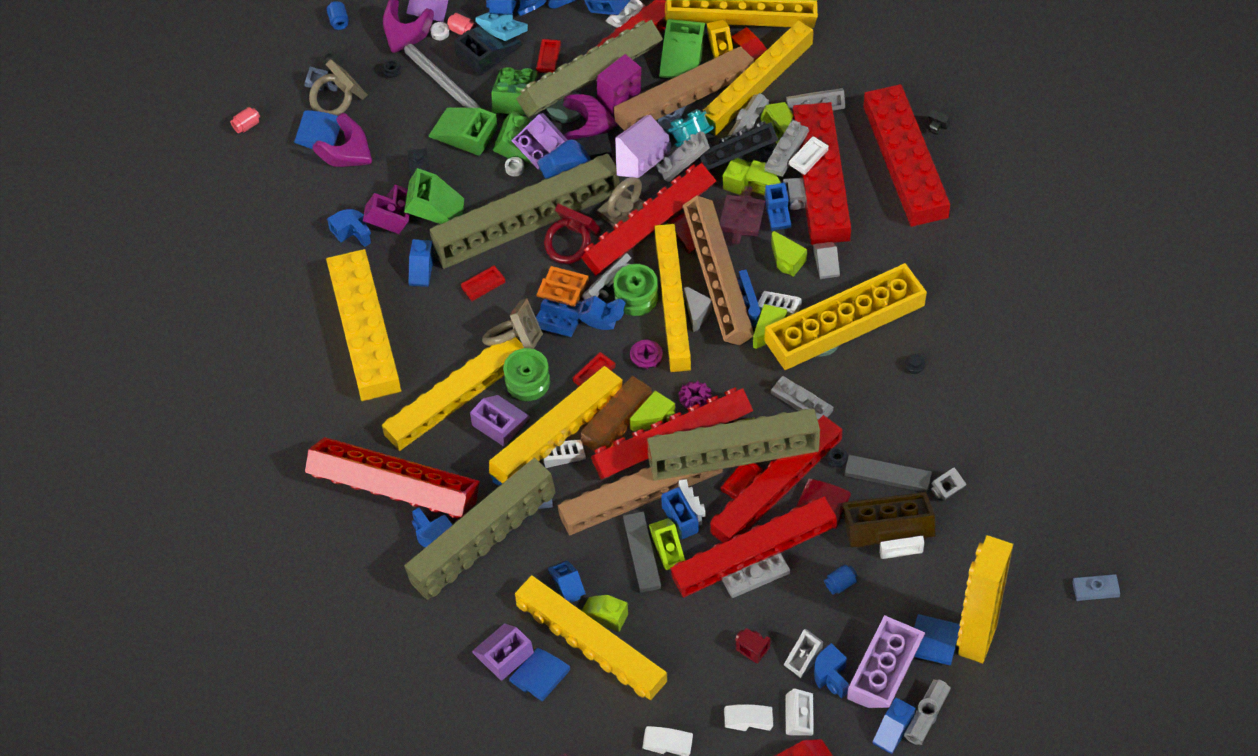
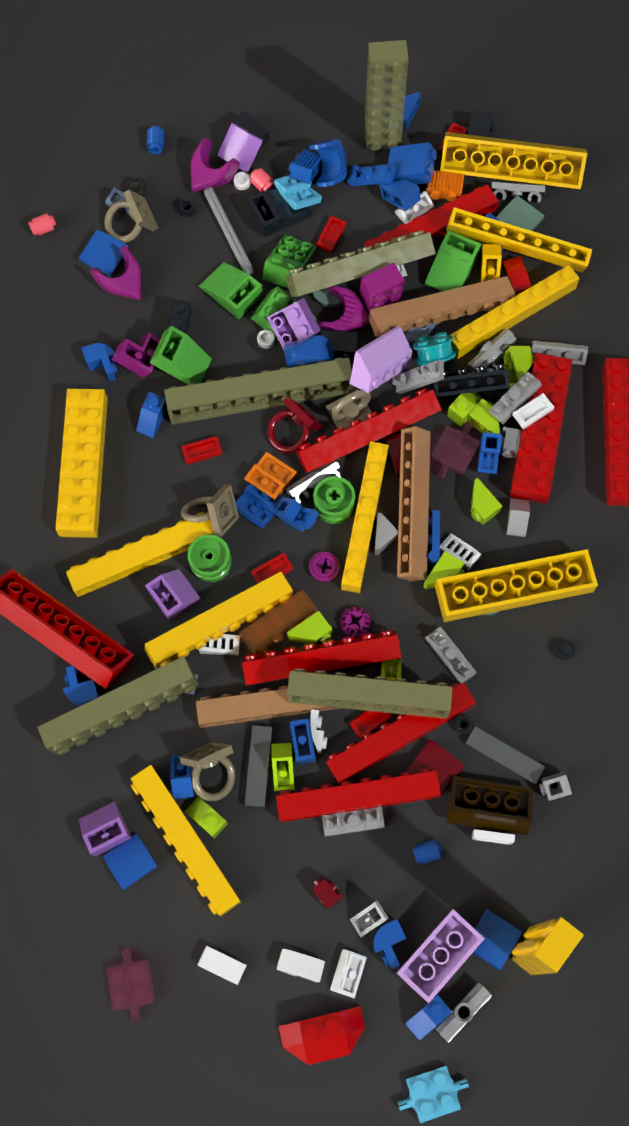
camera: 15 degrees right, 15 degrees up
(588, 552) = (207, 757): none -> dark tan tile

